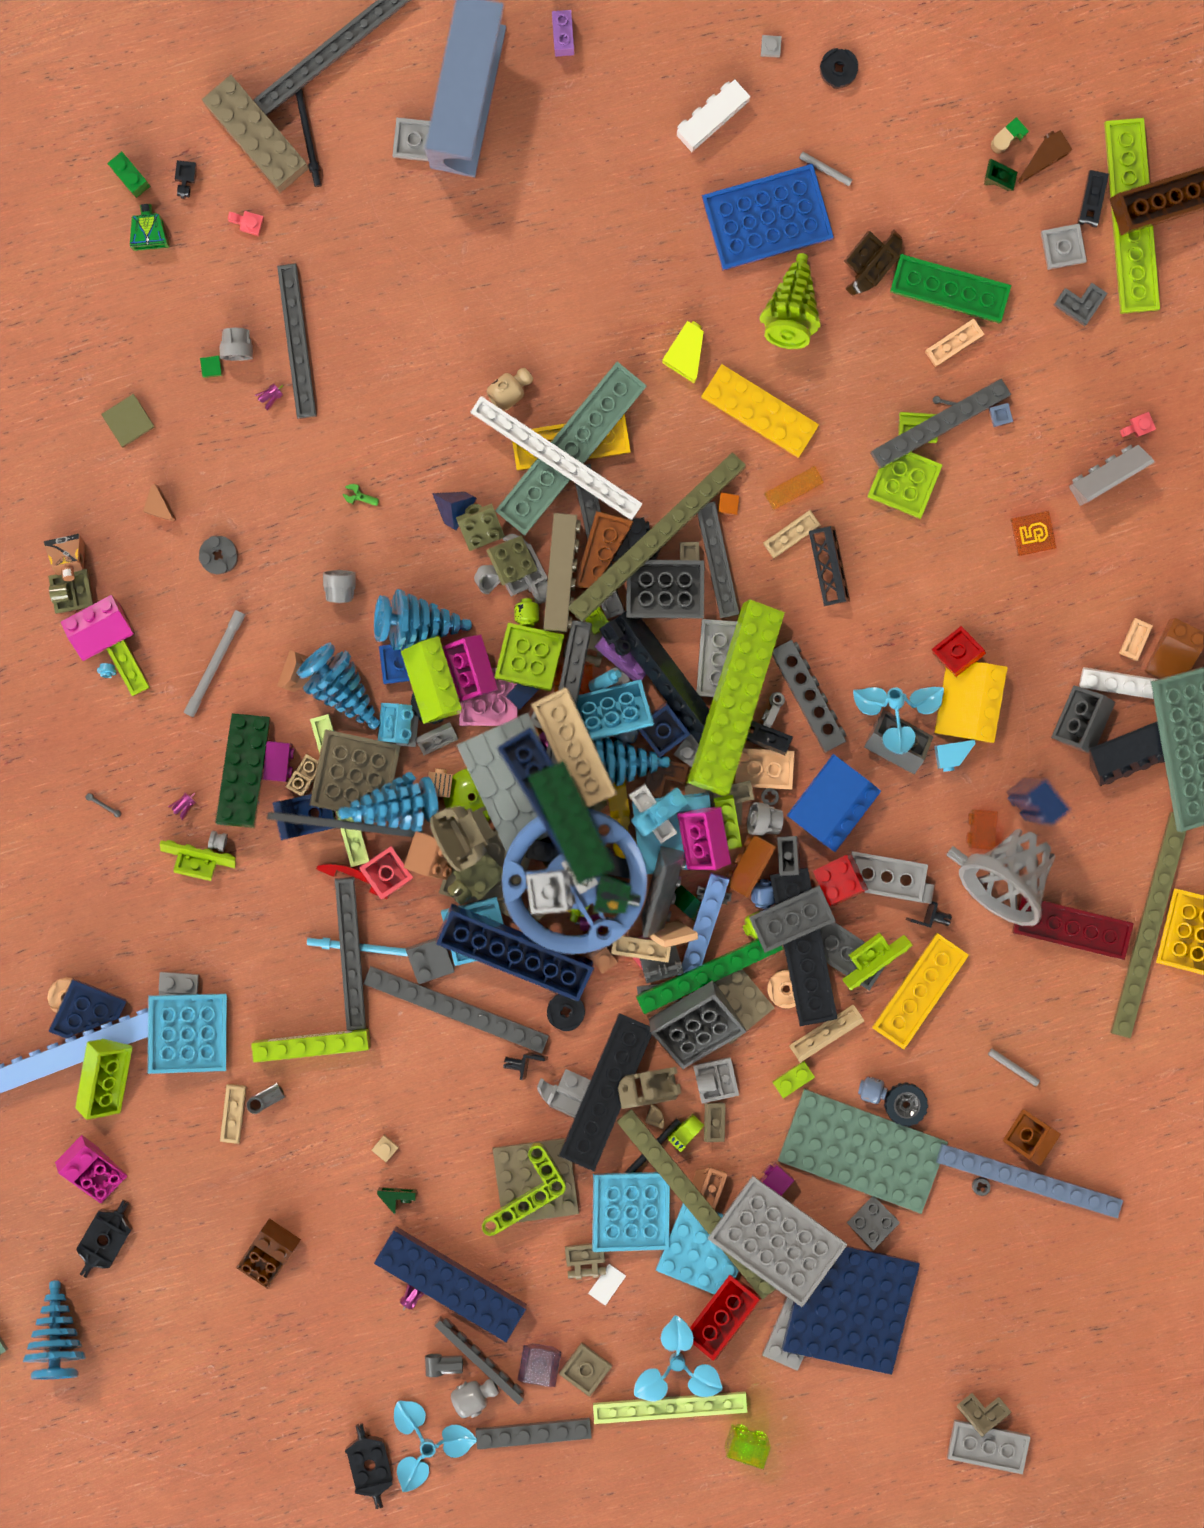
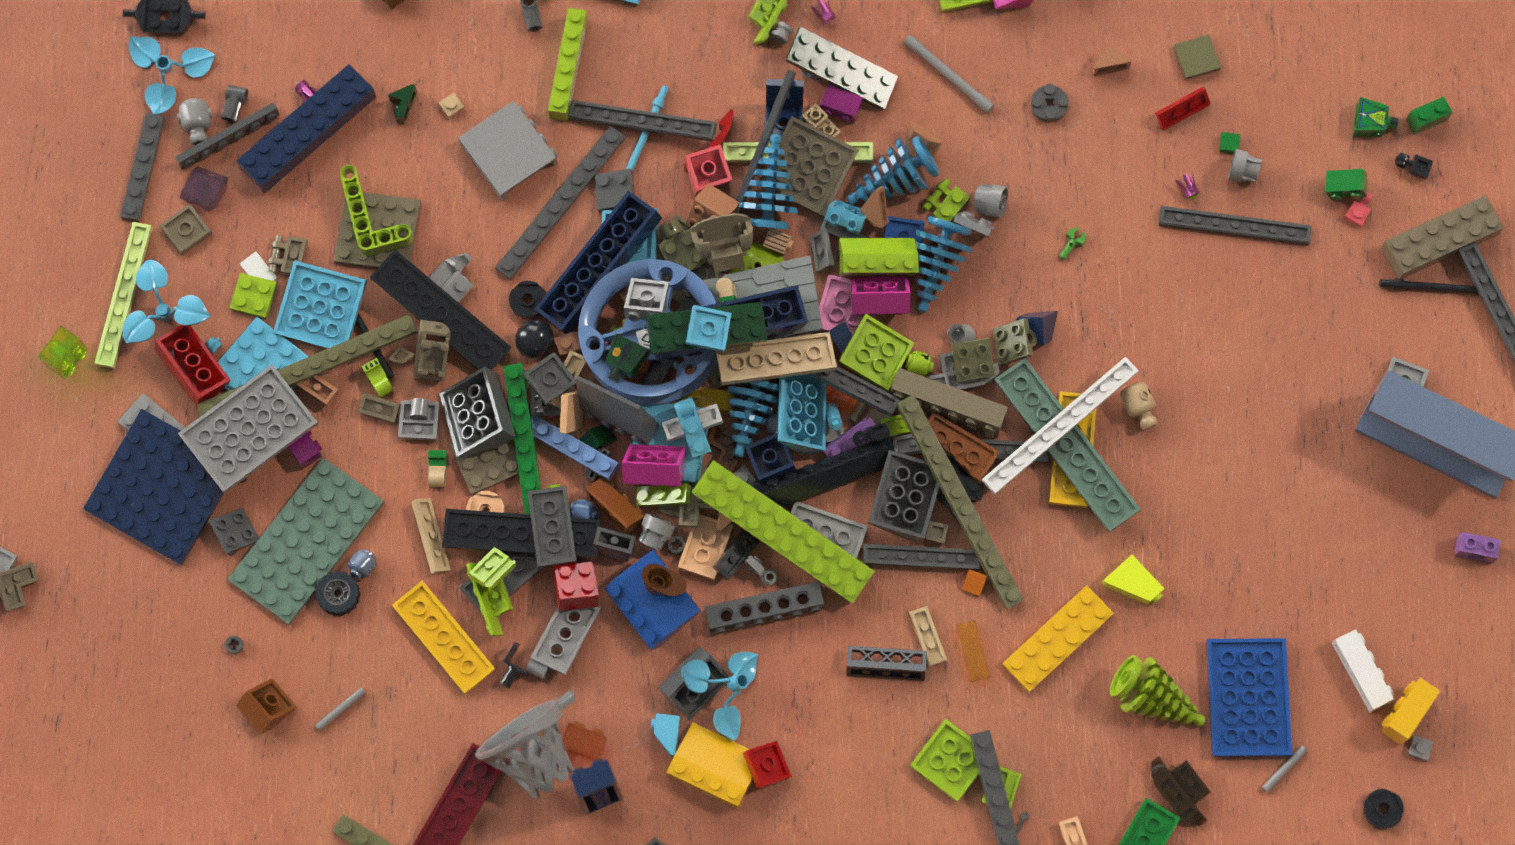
camera: 105 degrees right, 15 degrees down
(188, 421) = (1182, 108): none -> red plate
(225, 239) = (1346, 184): none -> green brick
(352, 624) = (952, 204): none -> lime plate
(369, 596) = (967, 219): none -> light grey plate
(382, 695) = (876, 208): none -> nougat slope
(417, 1078) = (507, 148): none -> light grey panel
(518, 814) = (726, 289): none -> tan leg
(522, 1065) = (490, 247): black bracket -> none
(575, 819) = (708, 328): none -> medium azure plate
(607, 992) = (534, 339): none -> black piece
(635, 1280) = (253, 295): none -> lime plate
(647, 964) = (549, 378): none -> dark grey plate
(696, 1303) = (213, 344): none -> medium azure plate
(742, 61) = (1409, 710): none -> yellow brick
(759, 1047) = (437, 468): none -> leg
(793, 1079) = (396, 494): lime plate -> none
(820, 795) = (663, 581): none -> reddish brown piece
(849, 963) = (492, 569): none -> lime plate
(1029, 1180) = (224, 692): sand blue plate -> none

